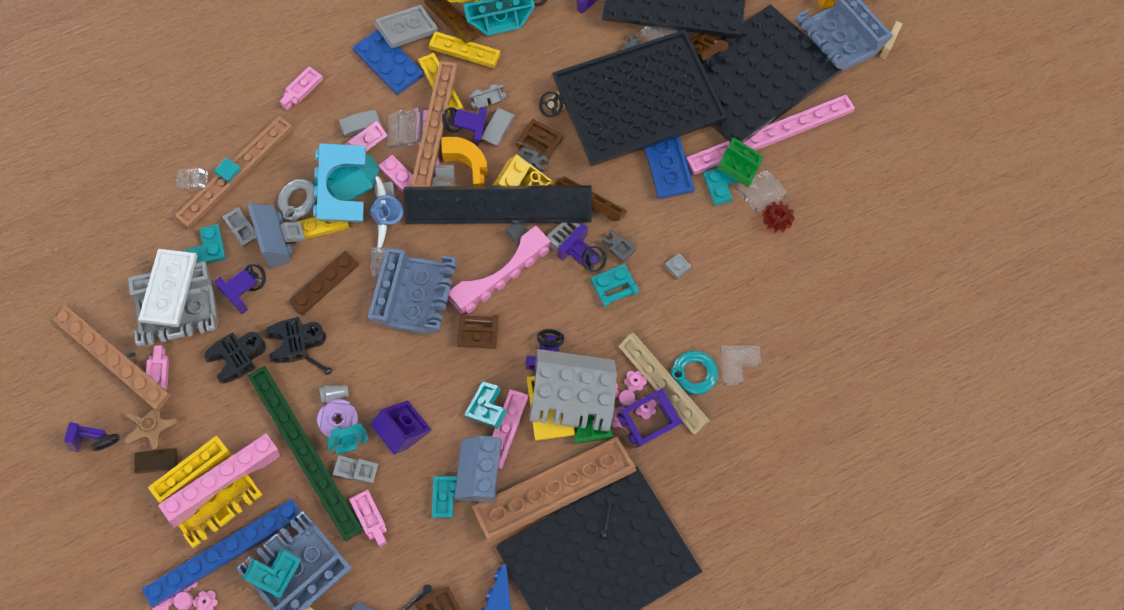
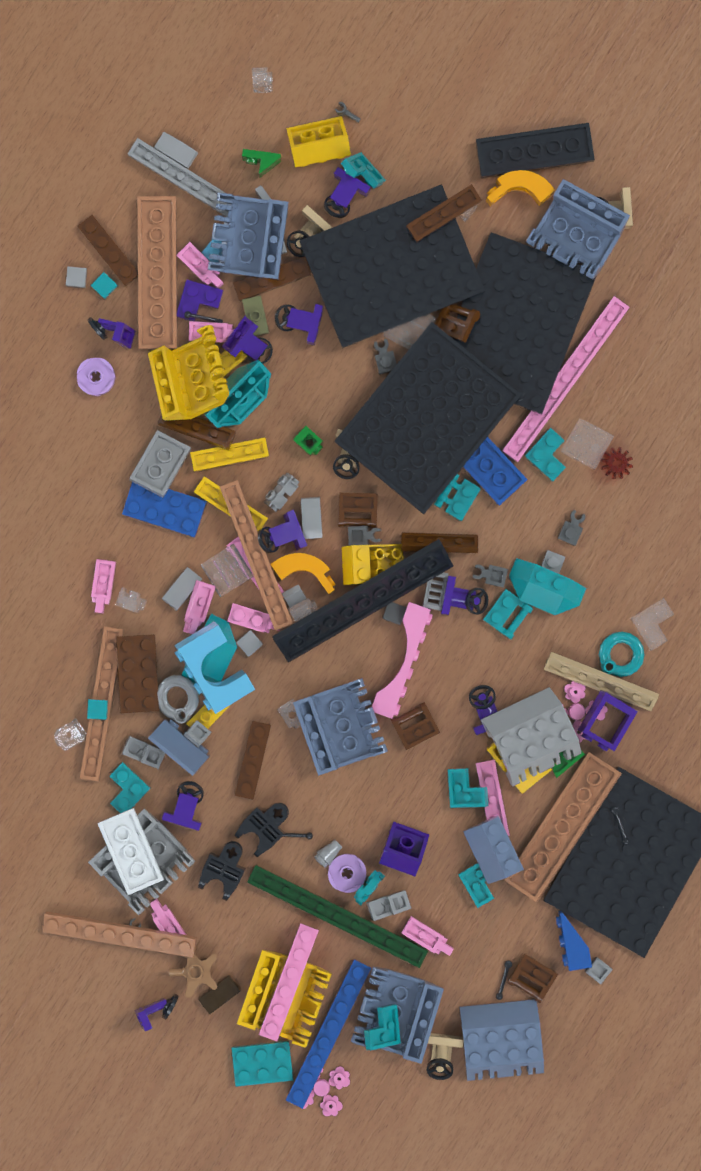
camera: 25 degrees left, 20 degrees up
(147, 545) = (262, 1063): none -> teal plate
(278, 163) = (137, 673): none -> reddish brown plate
(312, 108) = (130, 601): none -> clear brick
(385, 211) = (264, 664): medium blue helmet -> none
(532, 70) = (307, 434): none -> green brick
(629, 179) = (461, 501): none -> teal plate
(661, 281) = (545, 588): none -> teal wedge
(709, 250) = (571, 531): none -> dark grey plate
(740, 162) = (555, 429): green slope -> none

